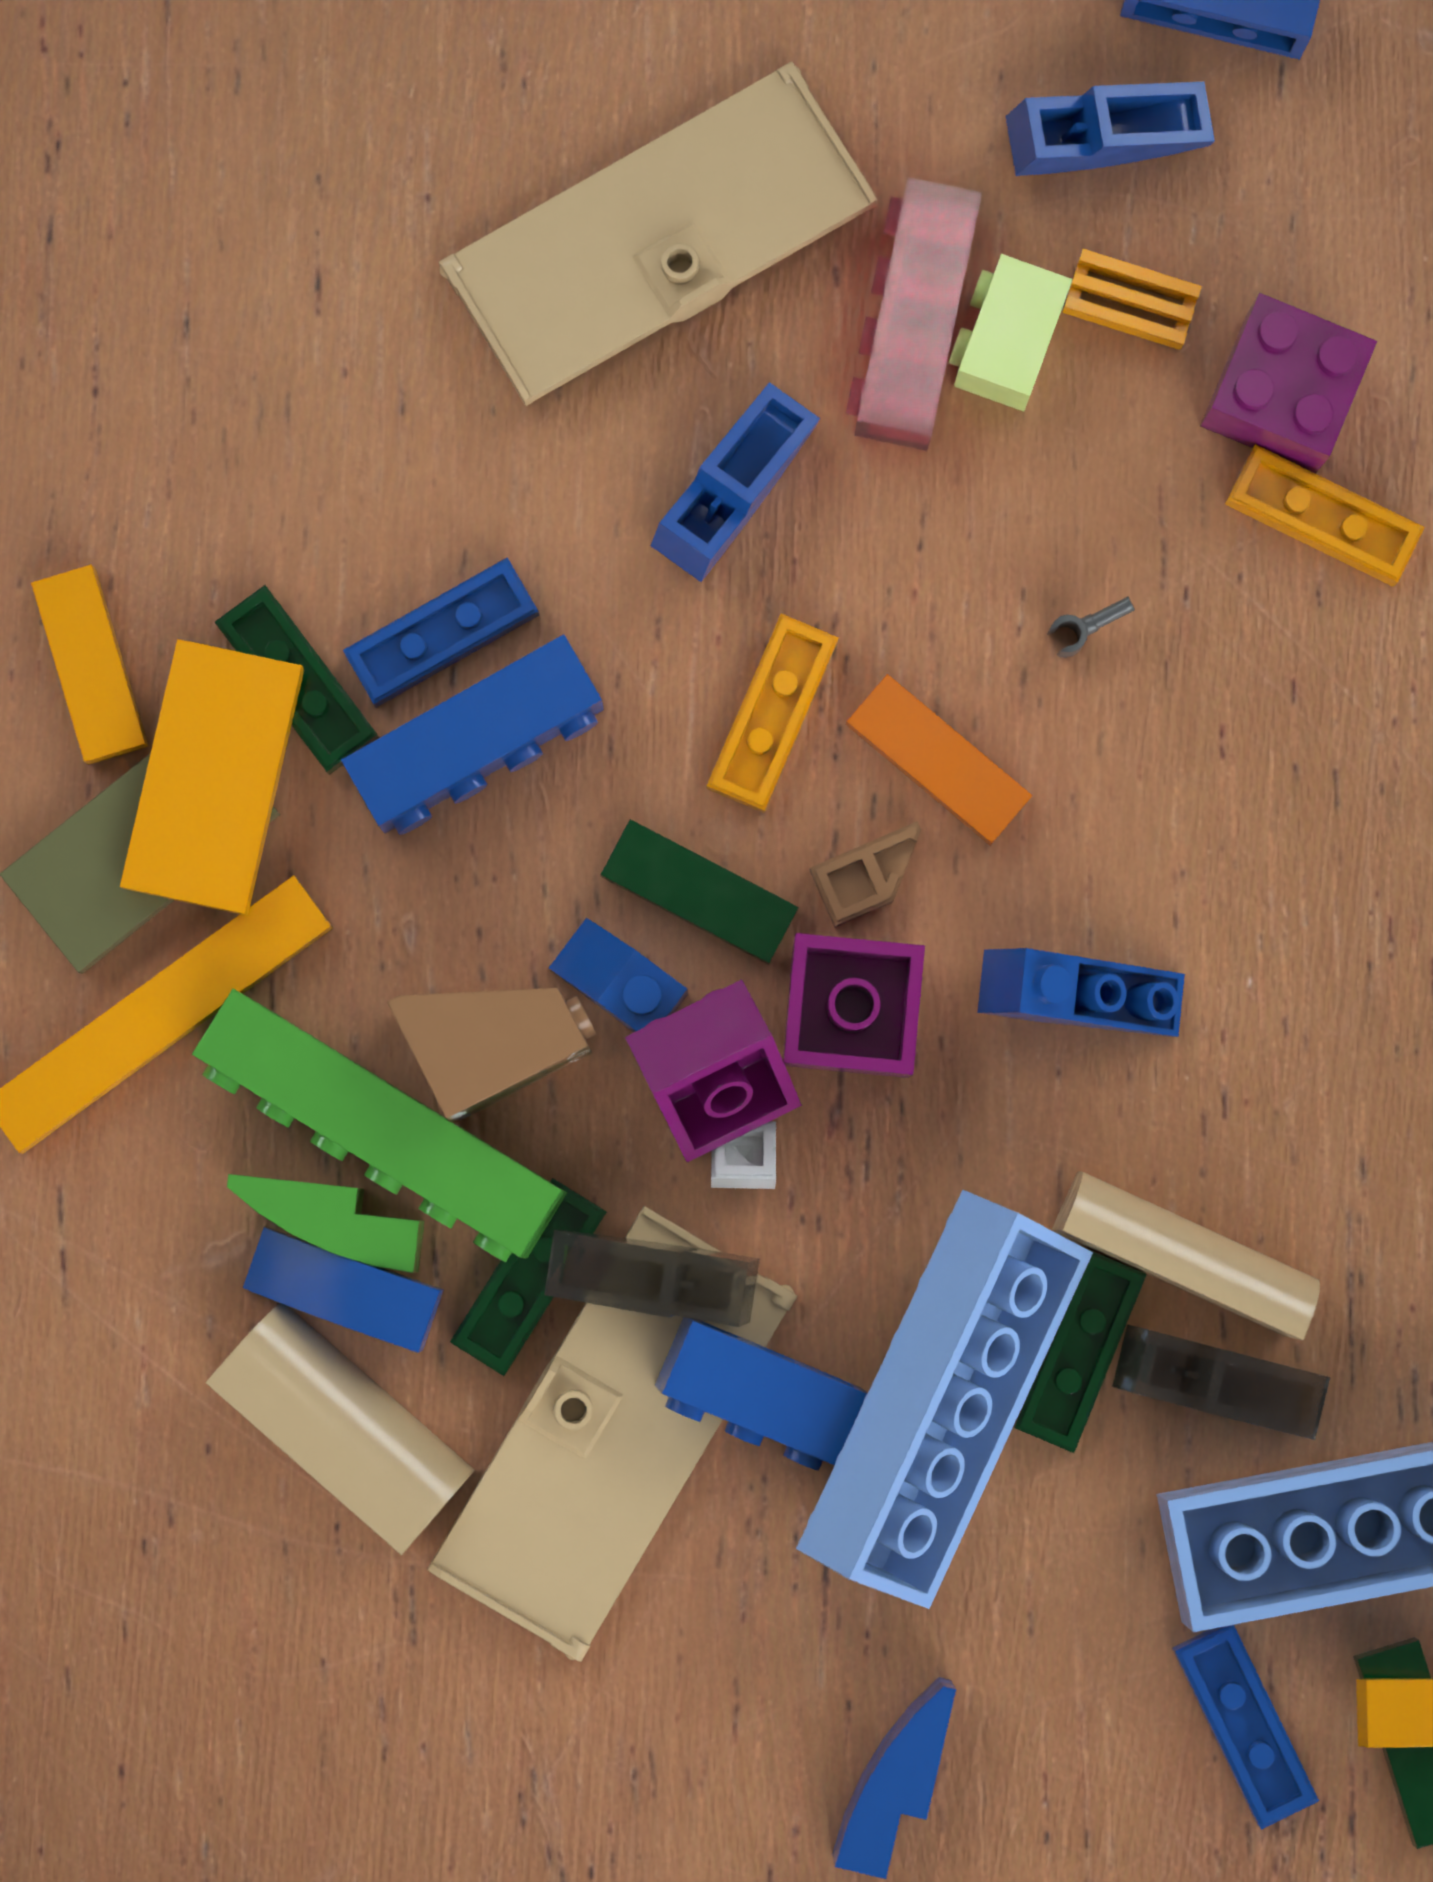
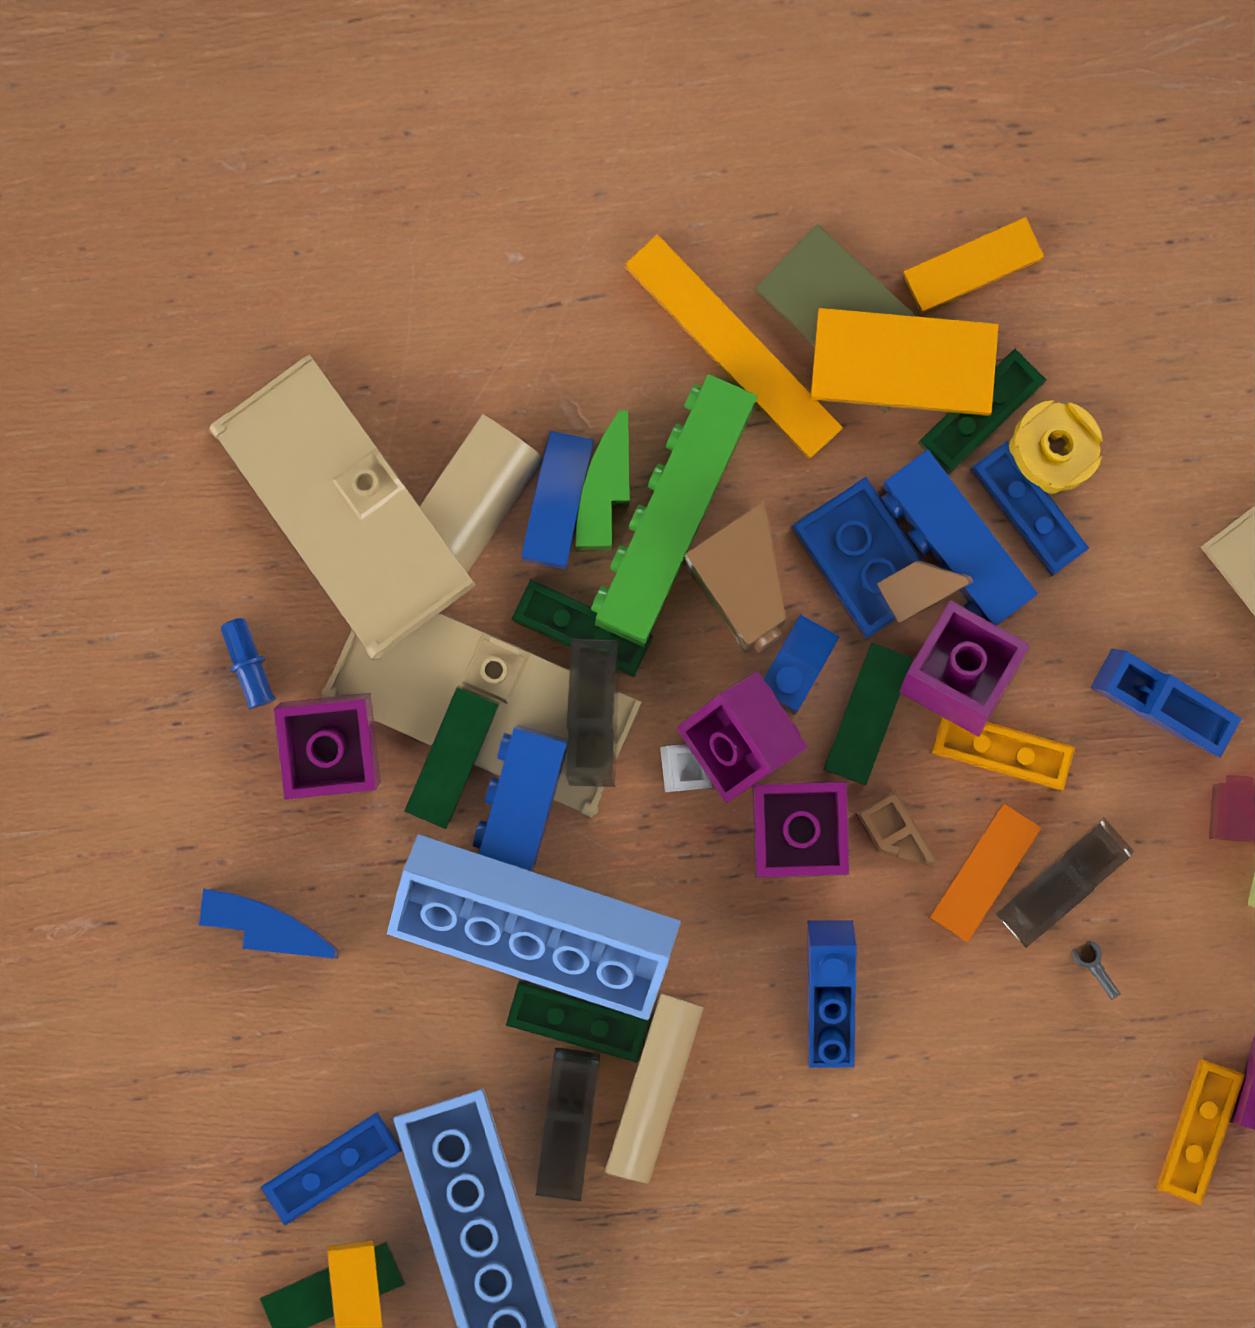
camera: 85 degrees right, 0 degrees up
(312, 1601) = (342, 507): none -> tan door
(373, 613) = (1036, 459): none -> yellow plate
(480, 867) = (854, 548): none -> blue tile
(518, 1762) = (247, 663): none -> blue axle
(534, 796) = (919, 588): none -> medium nougat tile
(652, 1663) = (327, 746): none -> magenta brick
(655, 748) = (964, 668): none -> magenta brick
(688, 1484) = (452, 757): none -> dark green tile
(966, 651) = (1065, 882): none -> clear smoke slope

